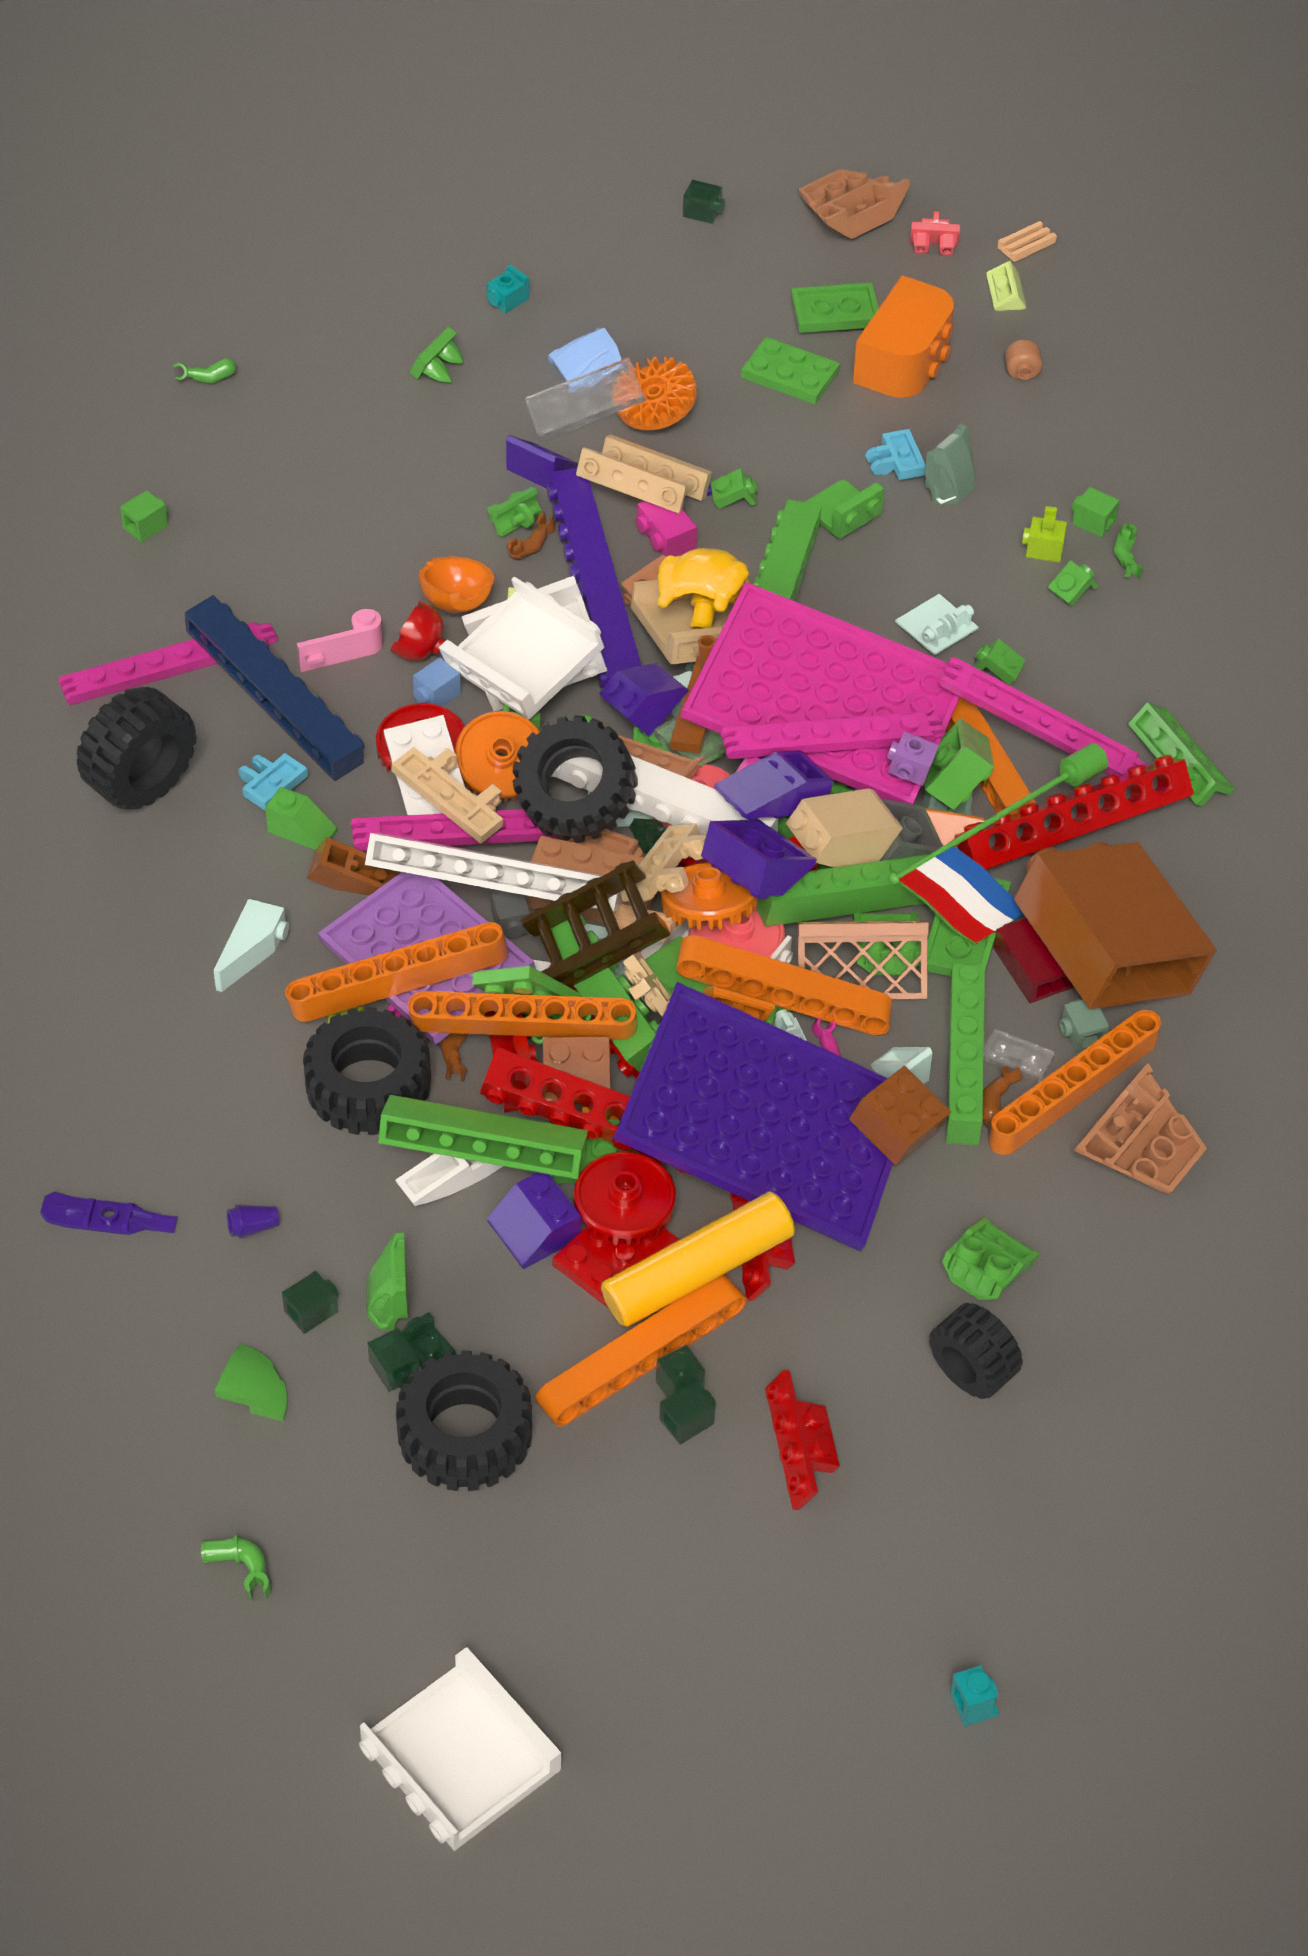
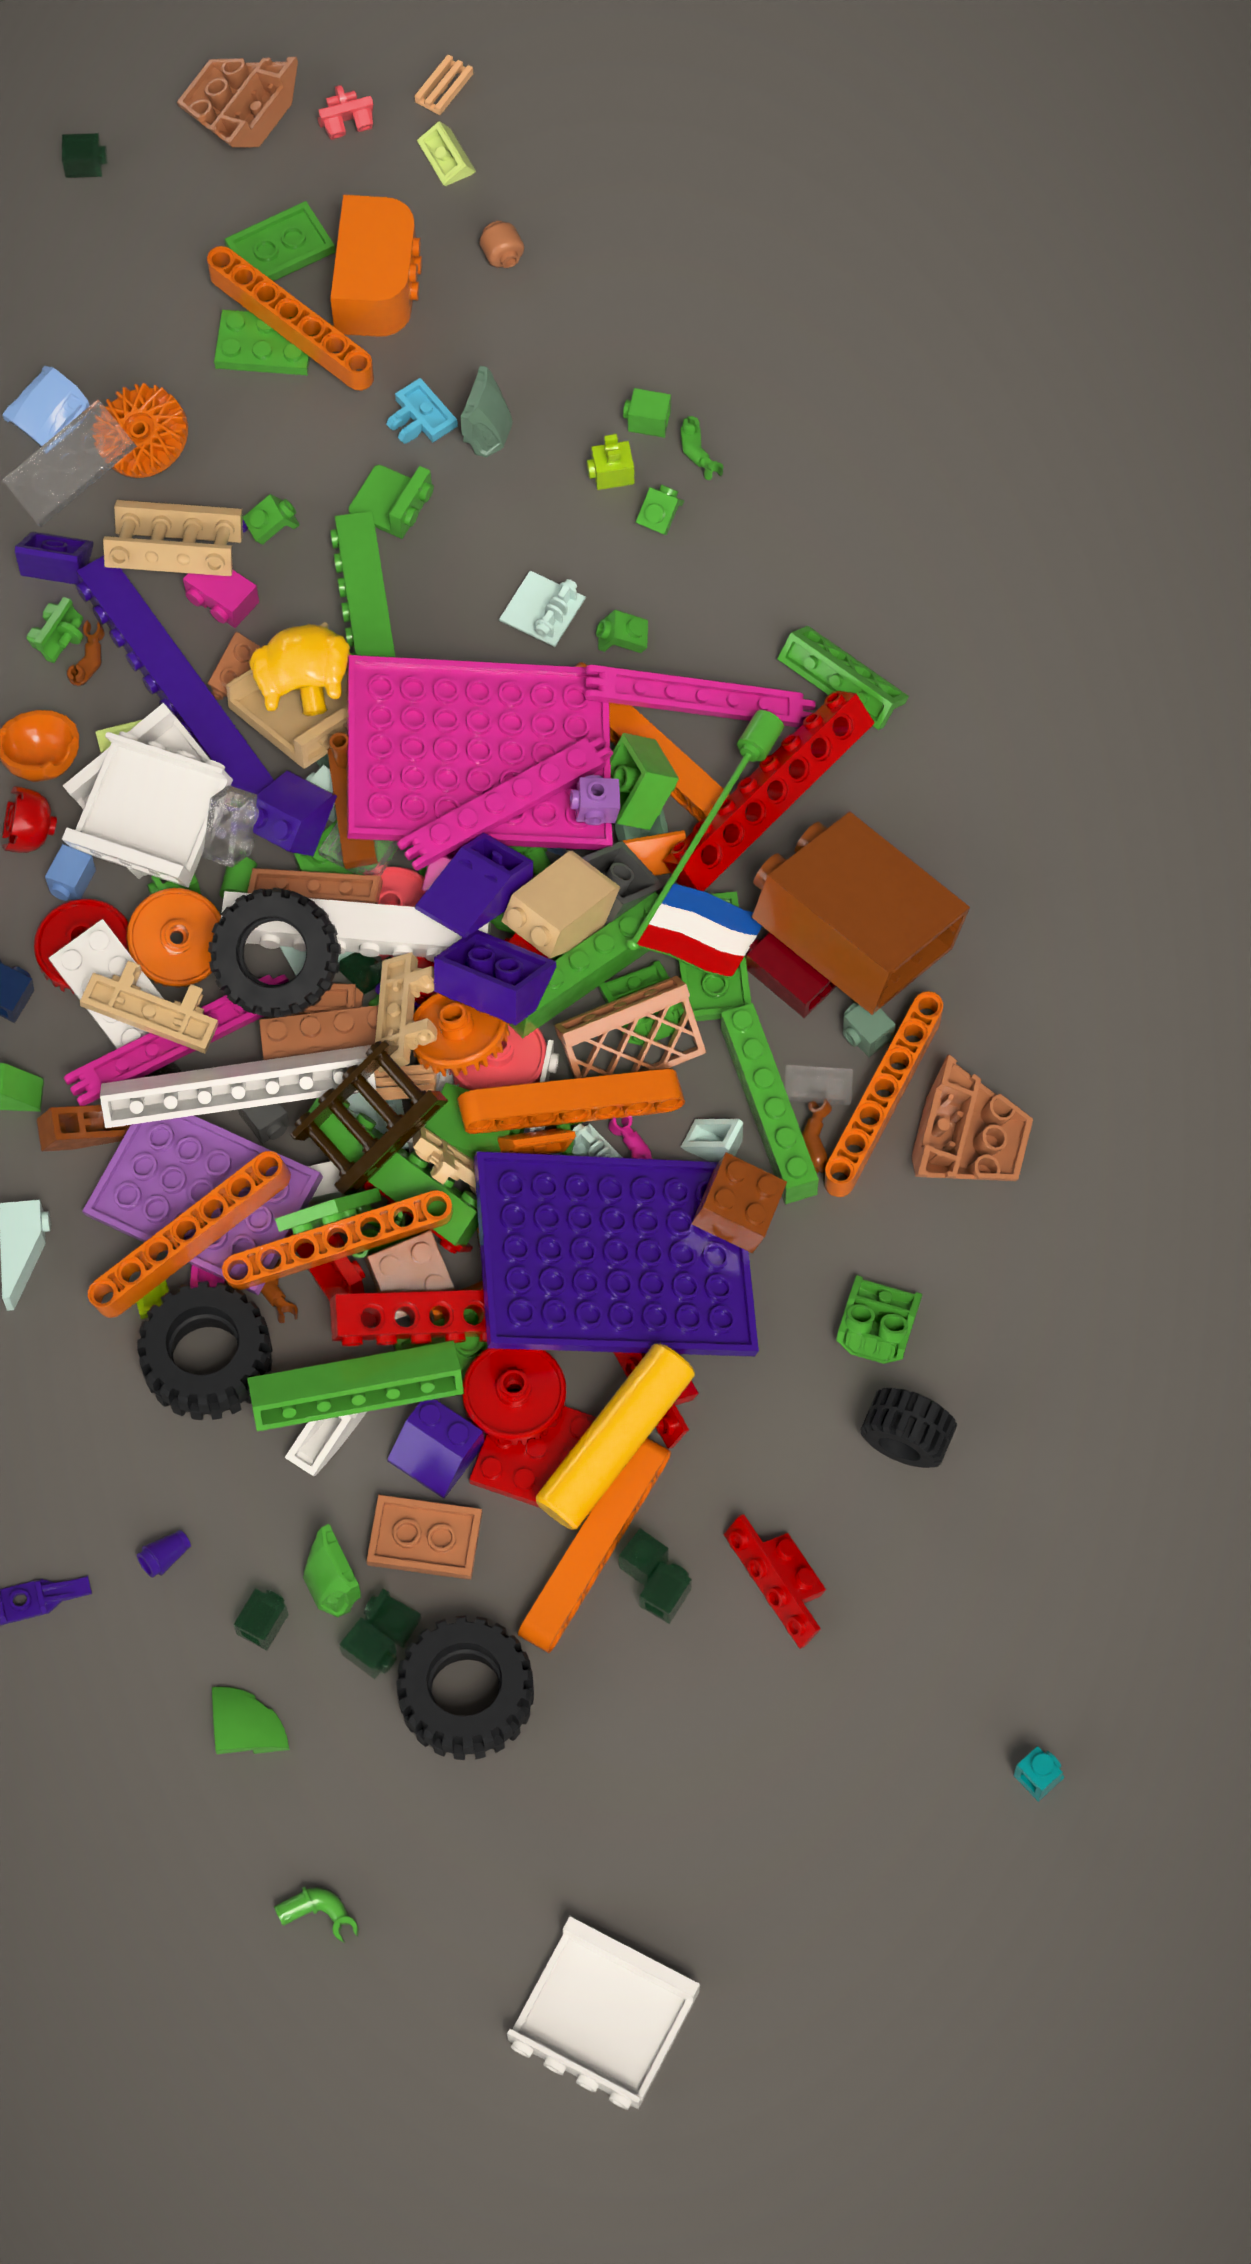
camera: 20 degrees left, 15 degrees up
(489, 1290) = (424, 1537): none -> nougat plate
(585, 682) = (230, 826): none -> clear brick
(818, 353) = (299, 327): none -> orange beam

